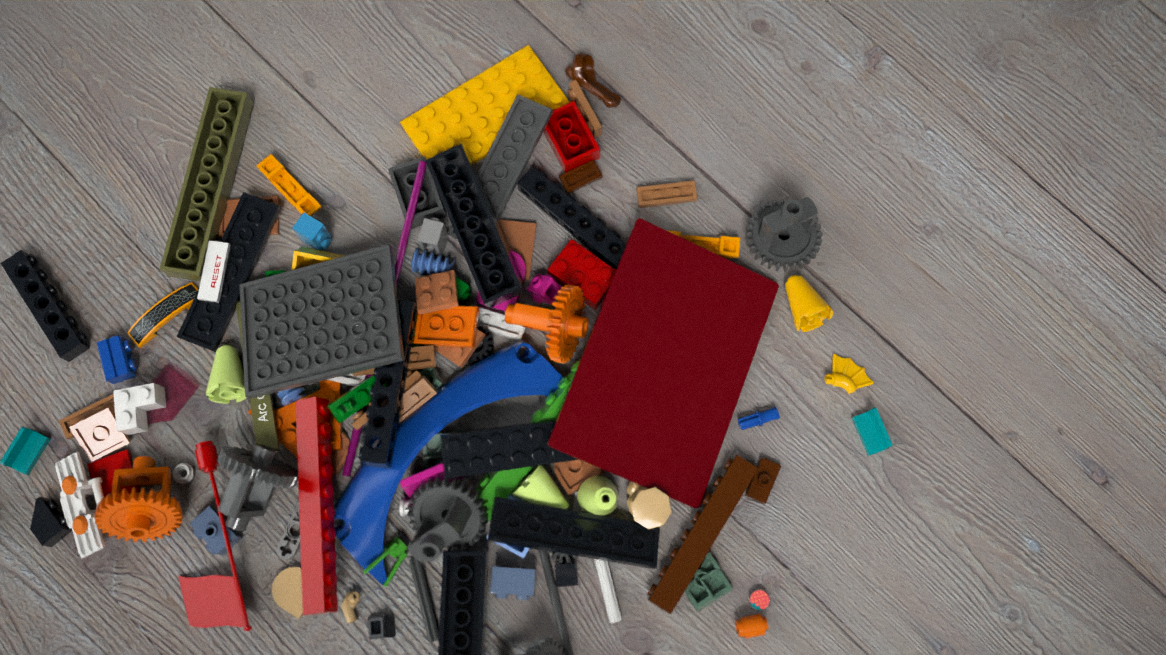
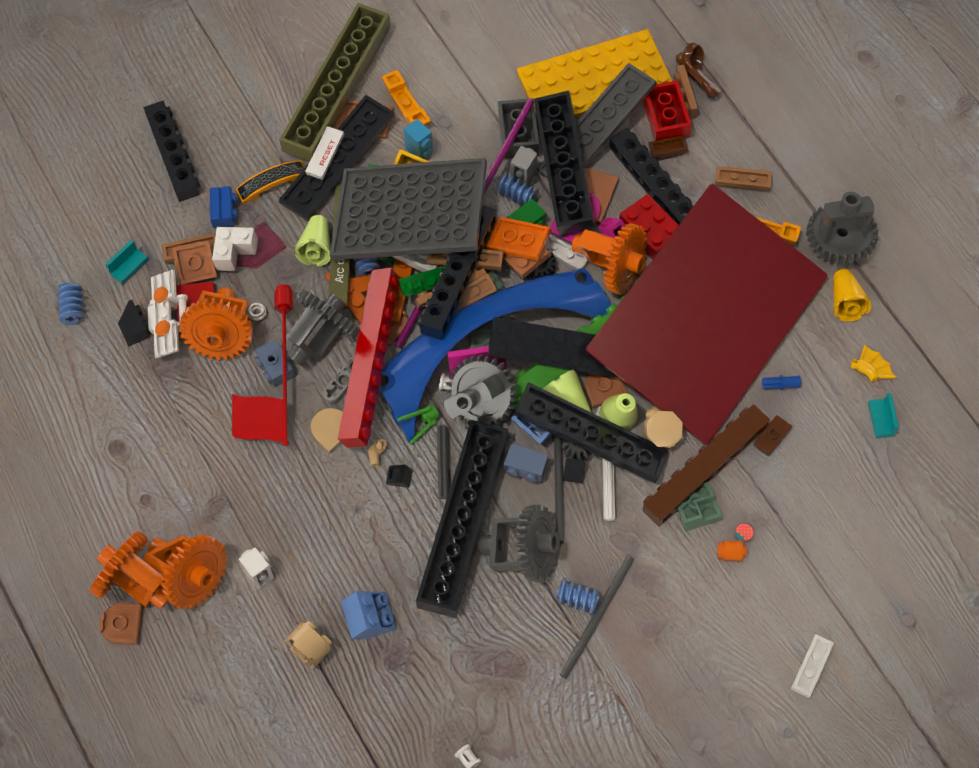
camera: 15 degrees right, 10 degrees down
(436, 292) = (516, 209): nougat plate -> none

